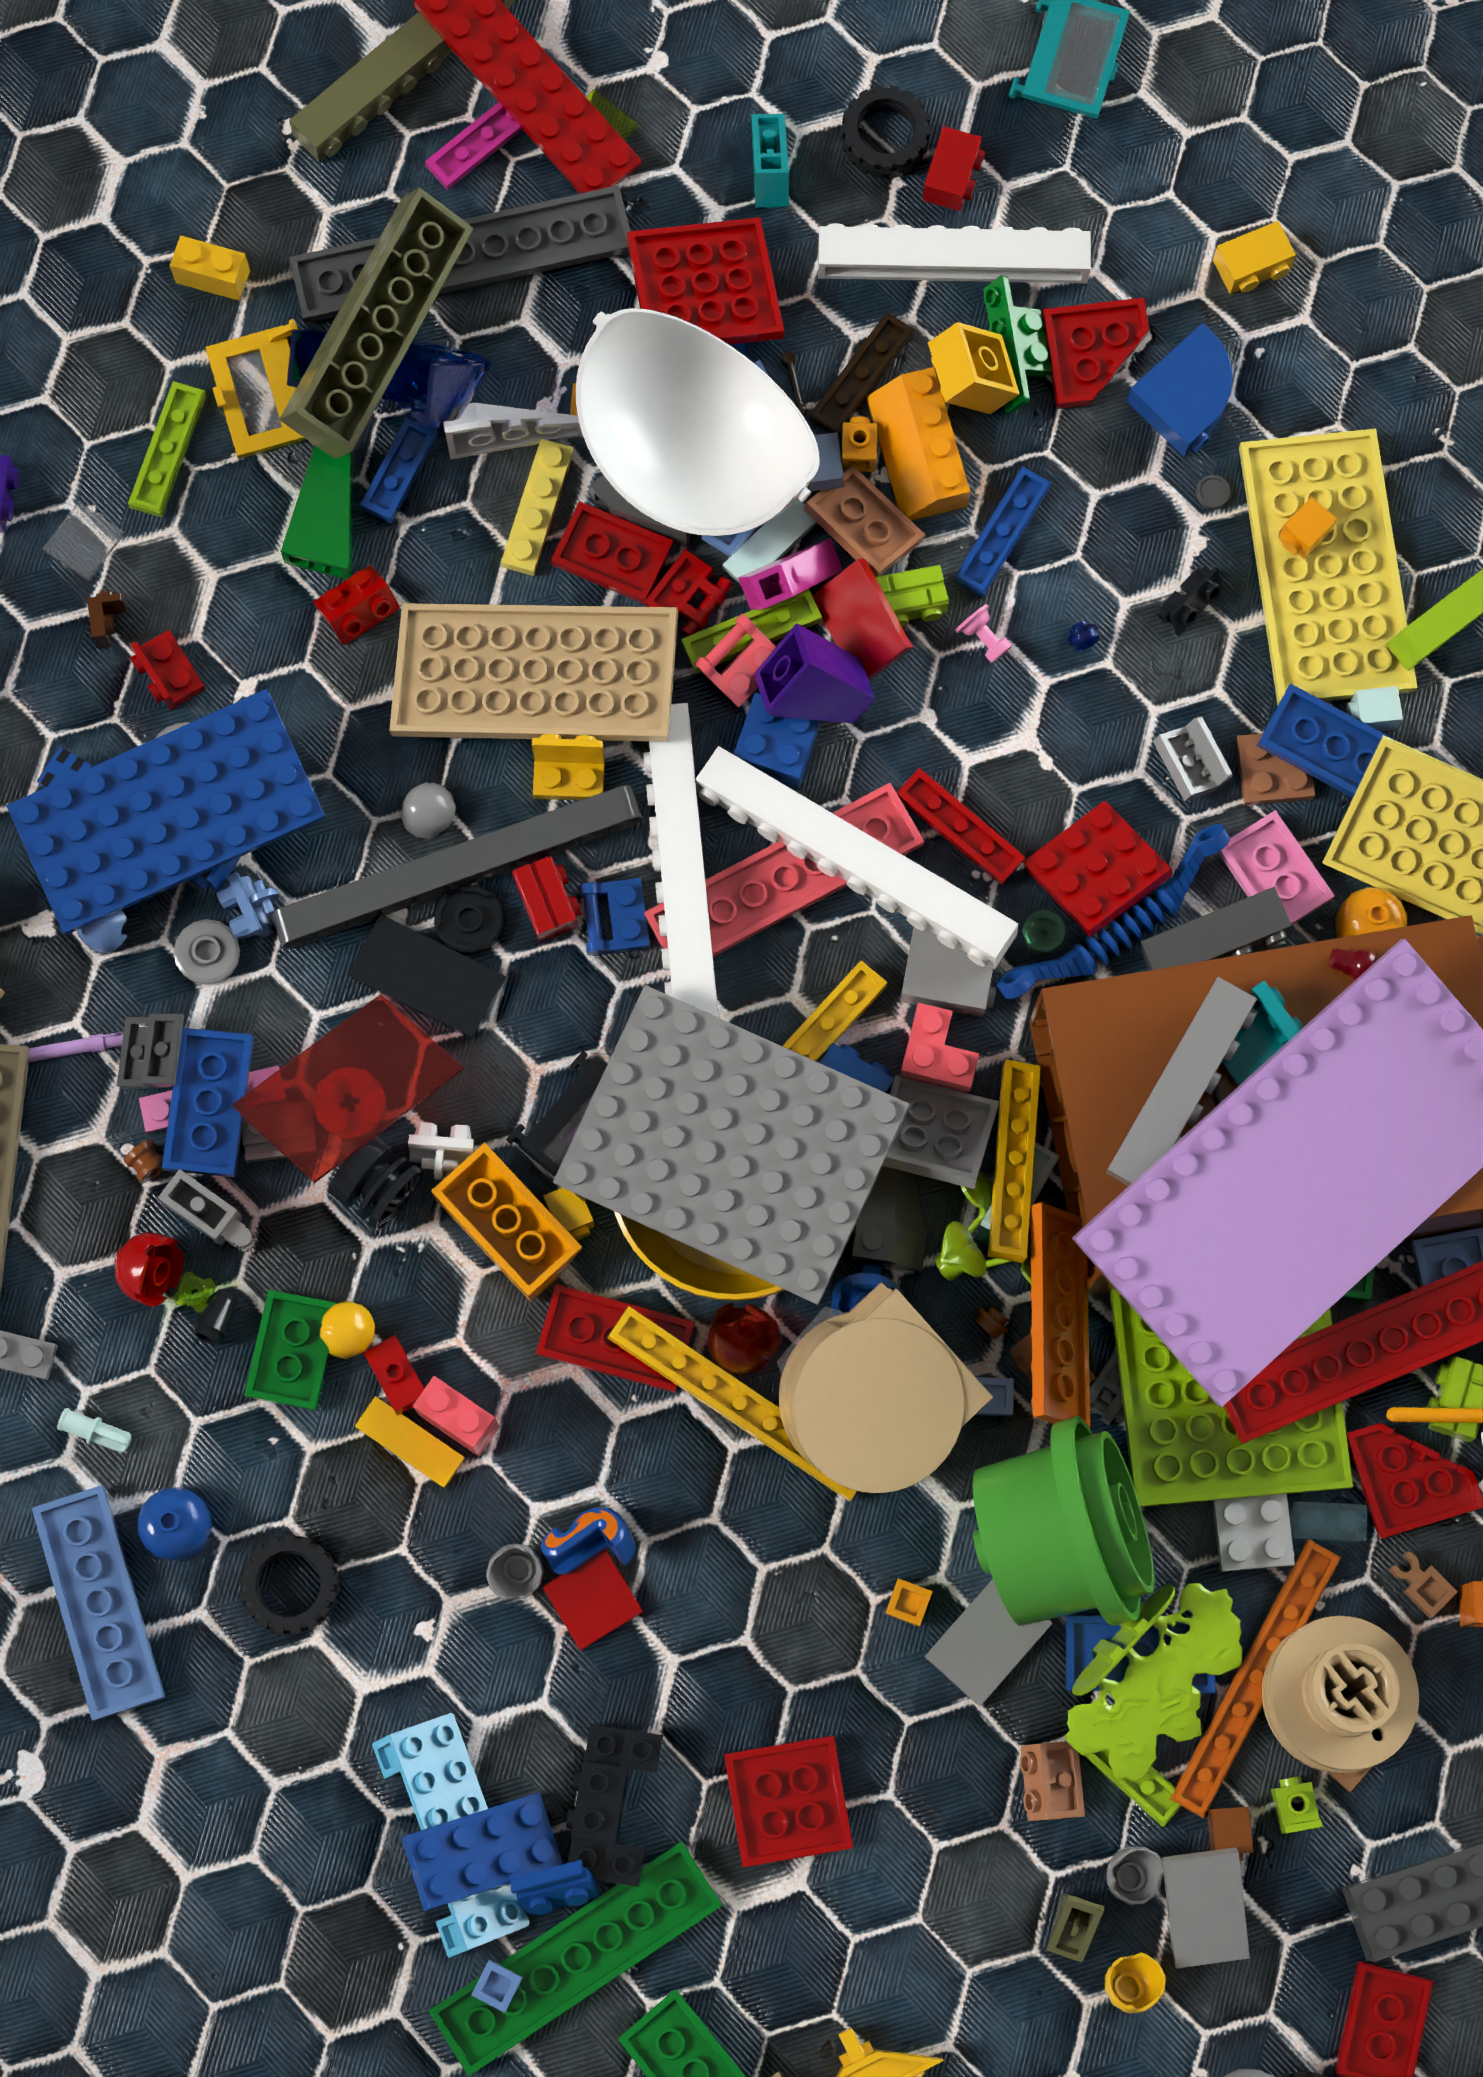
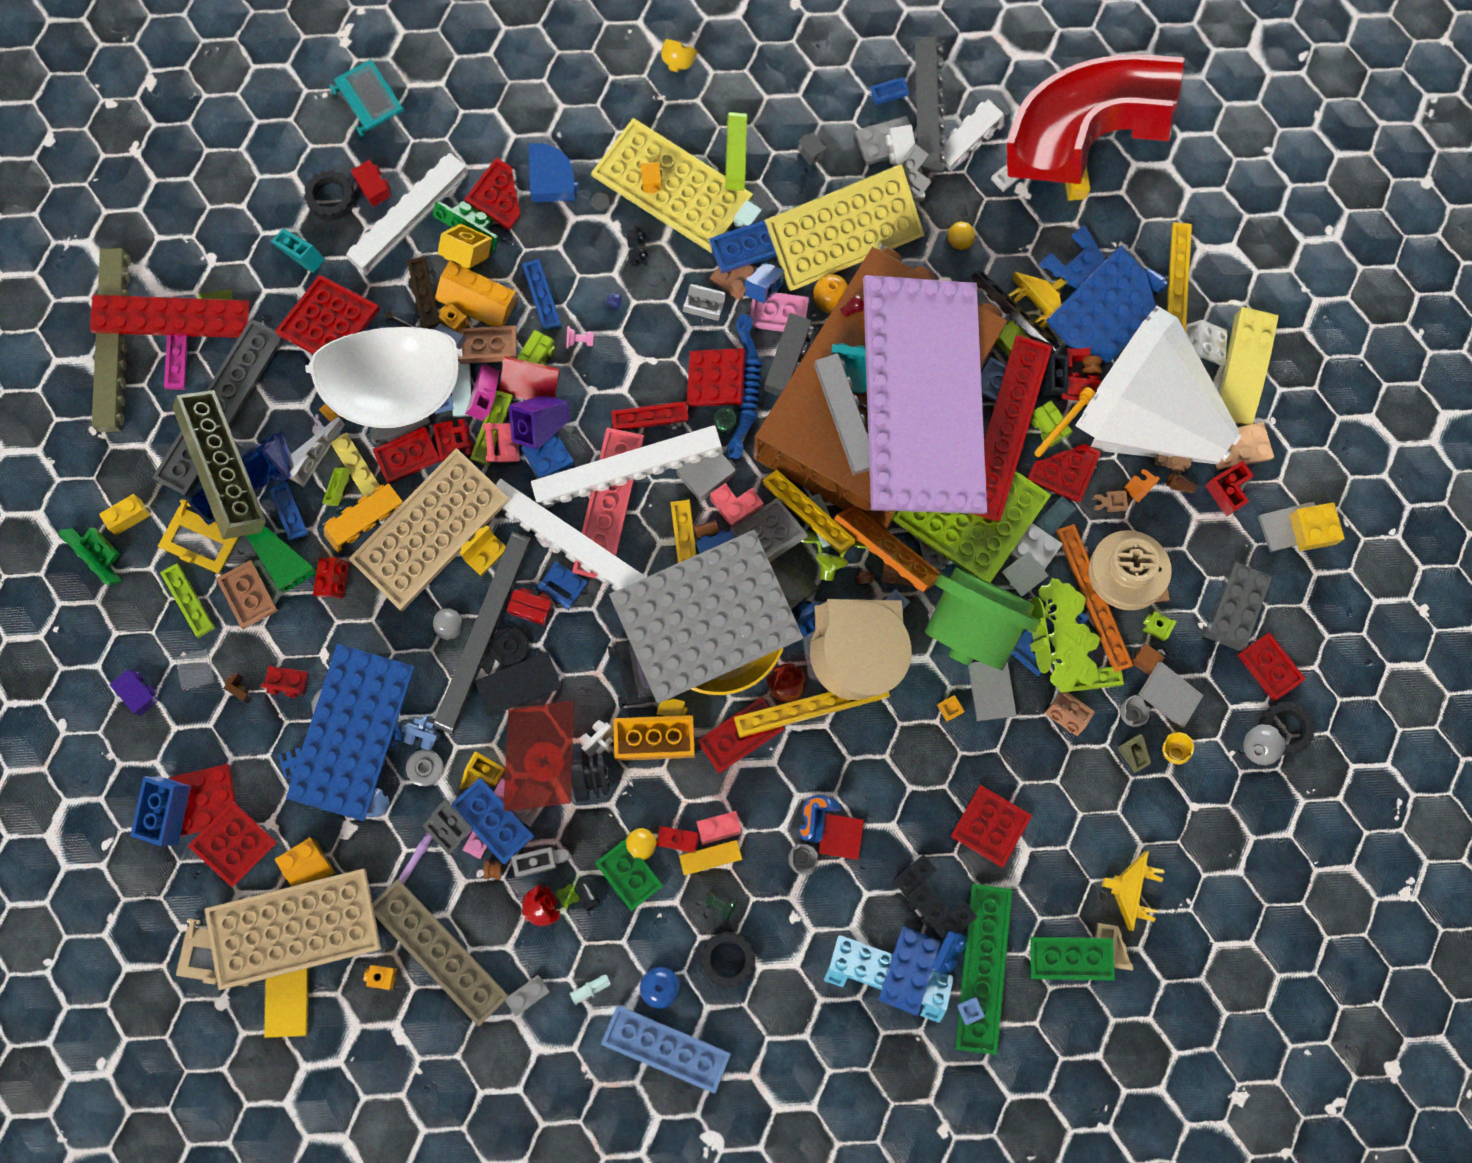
camera: 50 degrees left, 0 degrees up
(127, 276) = (95, 552): none -> green bracket
(240, 517) = (247, 594): none -> nougat plate
(270, 1027) = (482, 768): none -> yellow slope
(356, 1524) = (726, 908): none -> clear green piece
(473, 569) = (361, 517): none -> light orange wedge
(486, 500) = (336, 486): none -> lime plate
(866, 1043) = (706, 529): none -> dark orange piece
(1201, 1546) = (1025, 573): none -> white piece
(1254, 258) = (519, 102): yellow brick -> none
(1297, 815) = (764, 282): none -> blue brick

